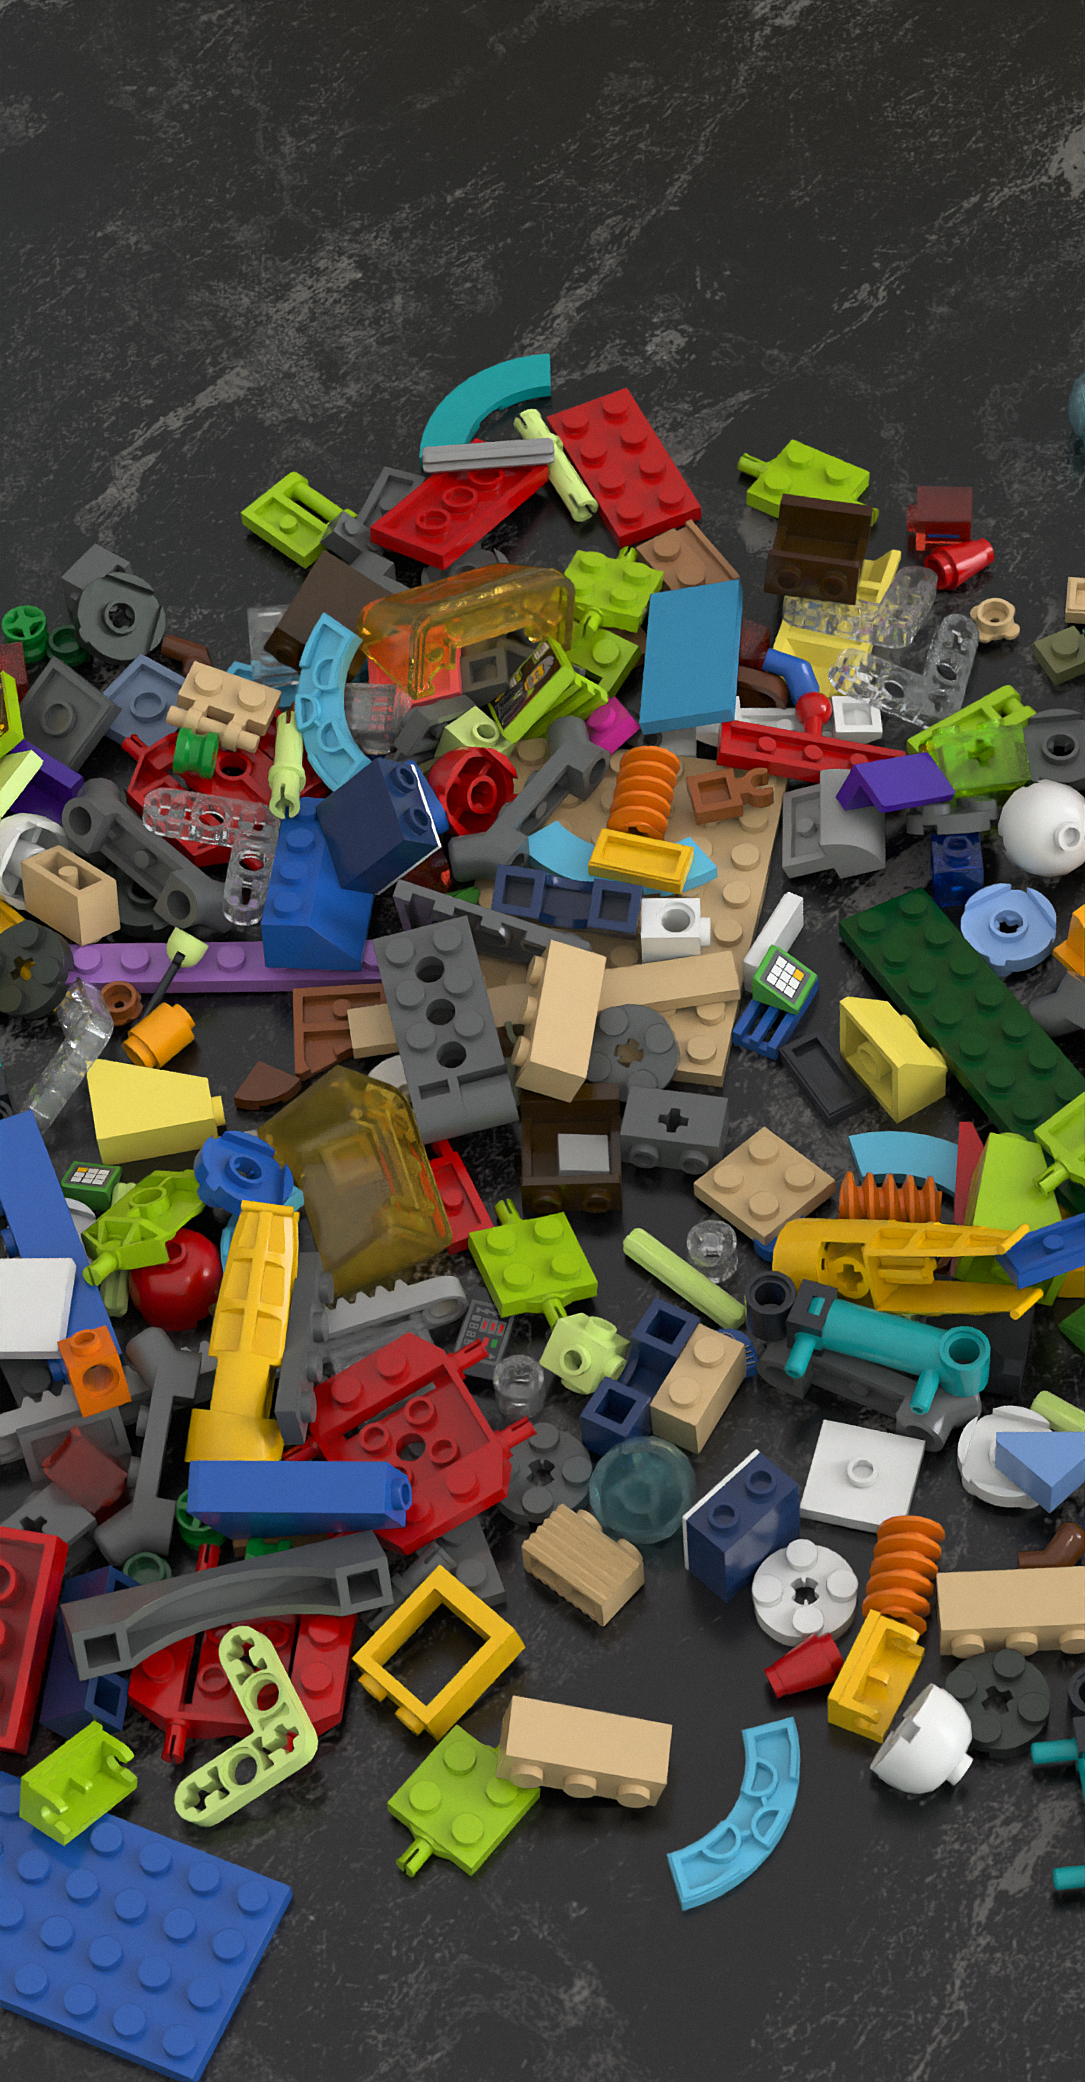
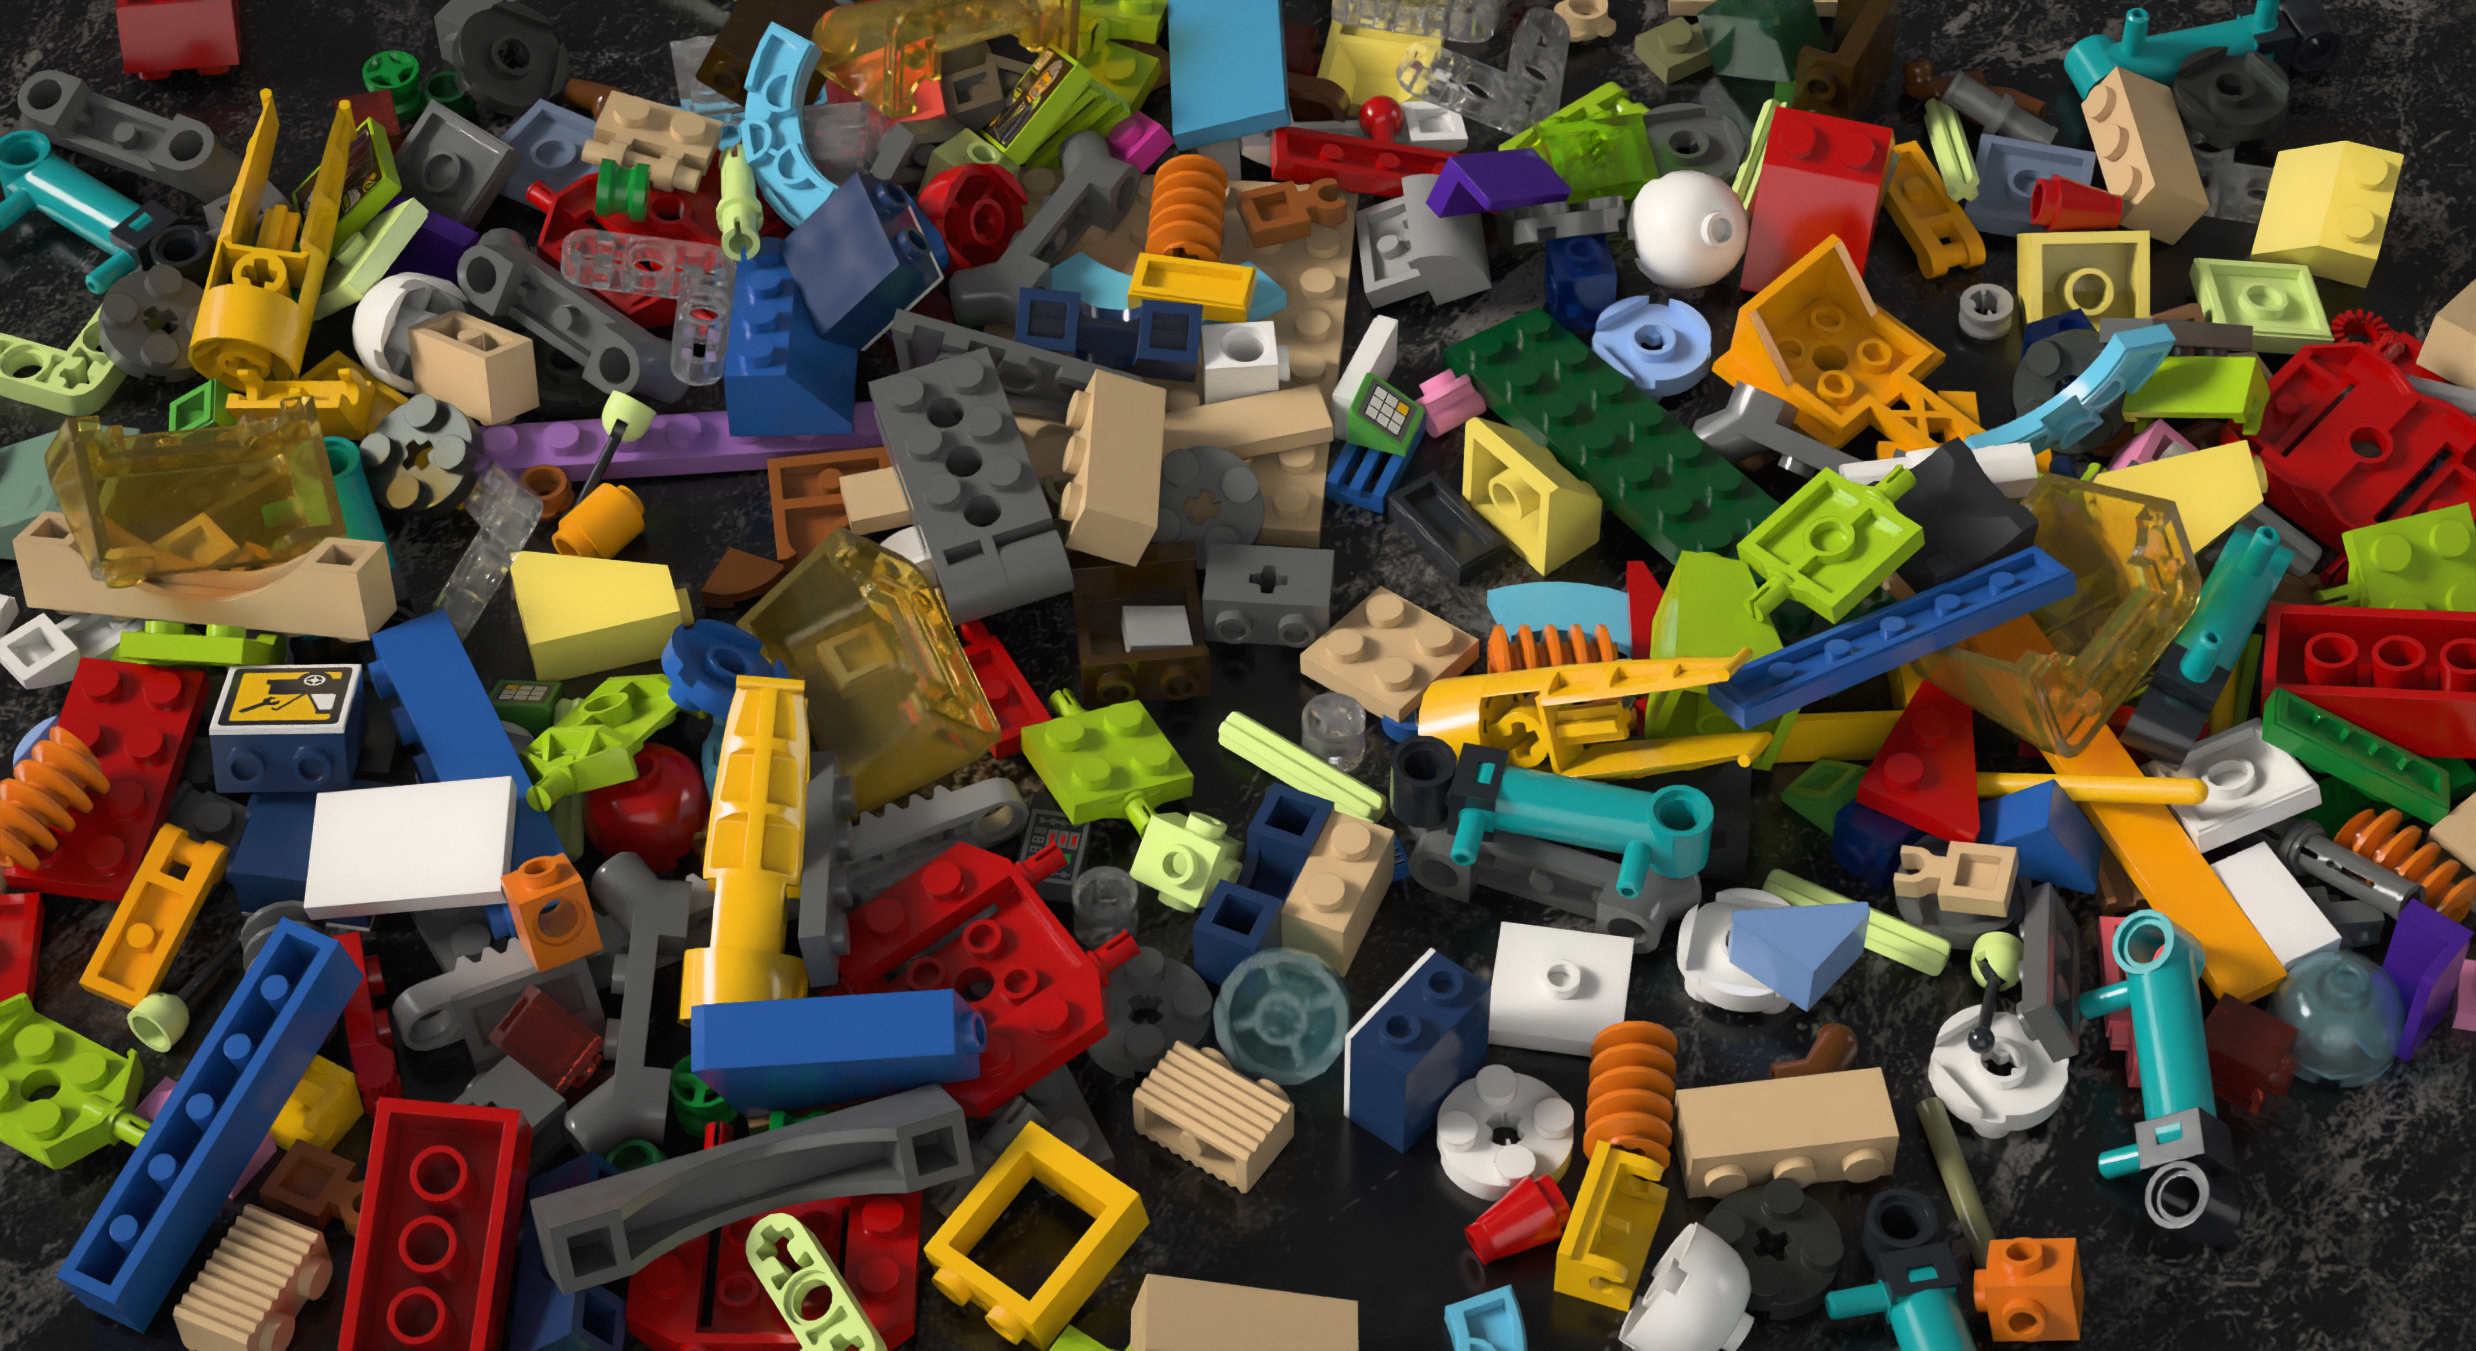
camera: 10 degrees left, 5 degrees down
(796, 671) = (1355, 75): blue arm -> none
(838, 967) = (1449, 402): none -> bright pink plate

